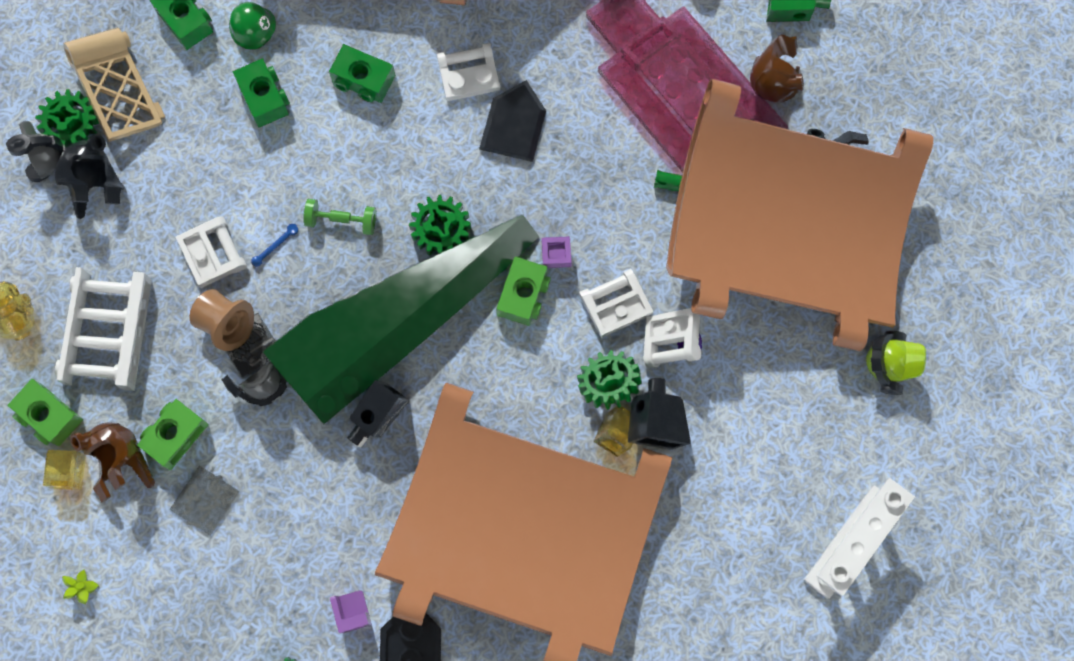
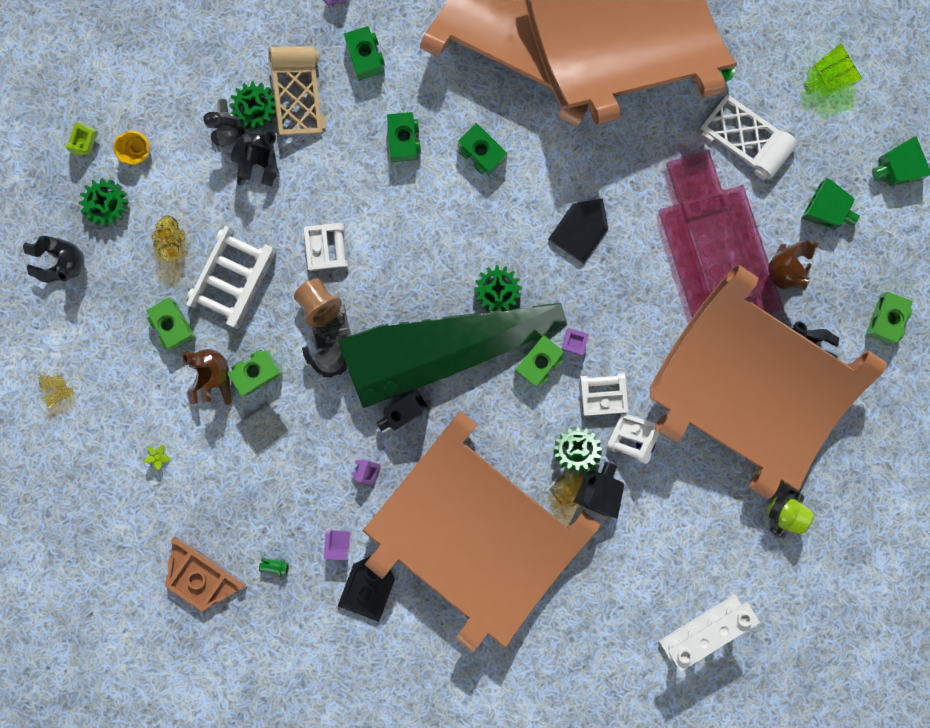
camera: 20 degrees right, 10 degrees up
(64, 469) = (171, 371): clear yellow panel -> none
(251, 25) = (413, 80): green helmet -> none
(292, 229) = (389, 250): blue hinge -> none
(311, 213) = (408, 244): bright green wheel -> none
(356, 504) = (366, 472): none -> medium lavender tile
(469, 80) = (561, 183): white plate -> none
(667, 181) = (678, 317): green pin -> none
(918, 78) = (879, 325): none -> bright green brick

